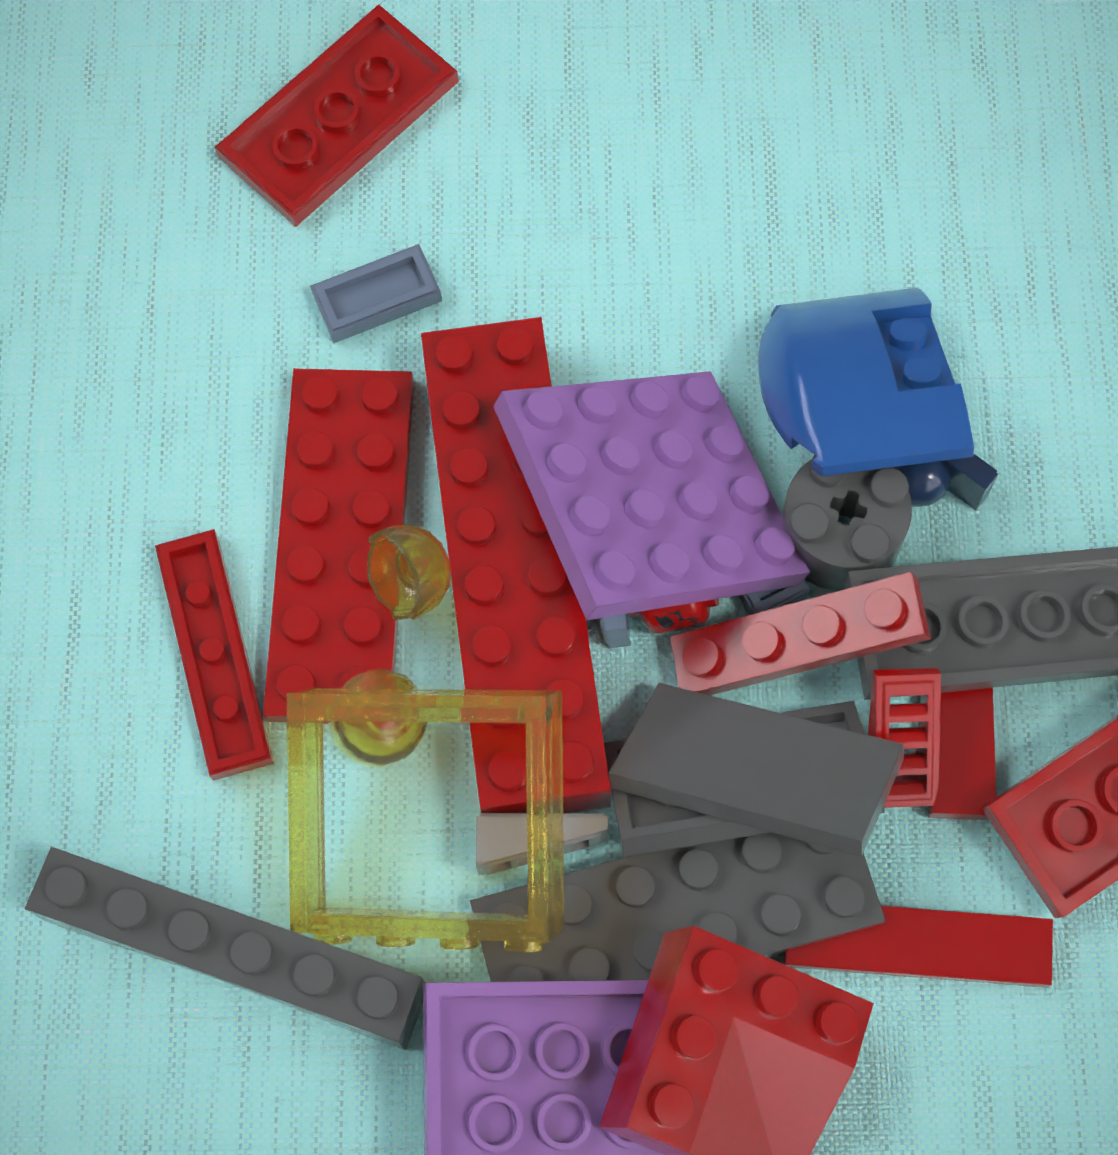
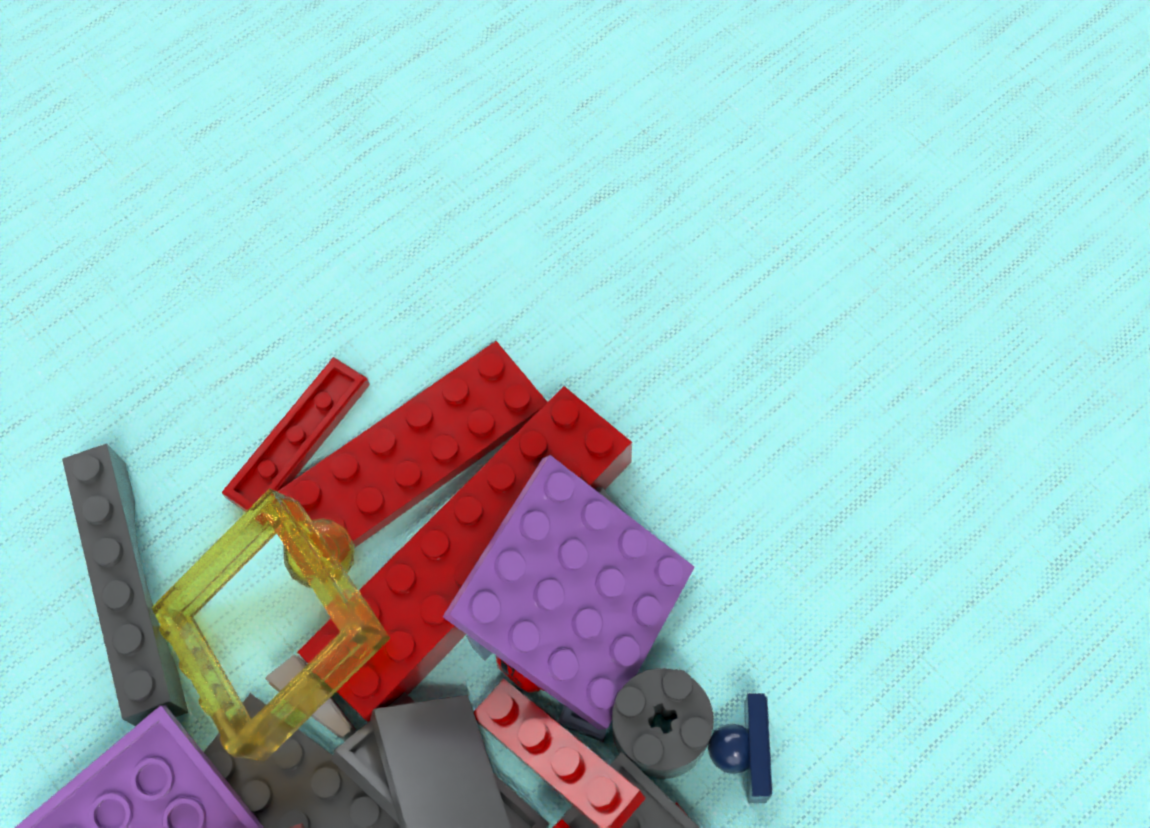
camera: 50 degrees right, 5 degrees down
(337, 115) = (674, 239): red tile -> none
(376, 293) = (582, 346): sand blue tile -> none
(408, 570) = (413, 497): clear yellow hair -> none
(862, 383) = (756, 661): blue slope -> none

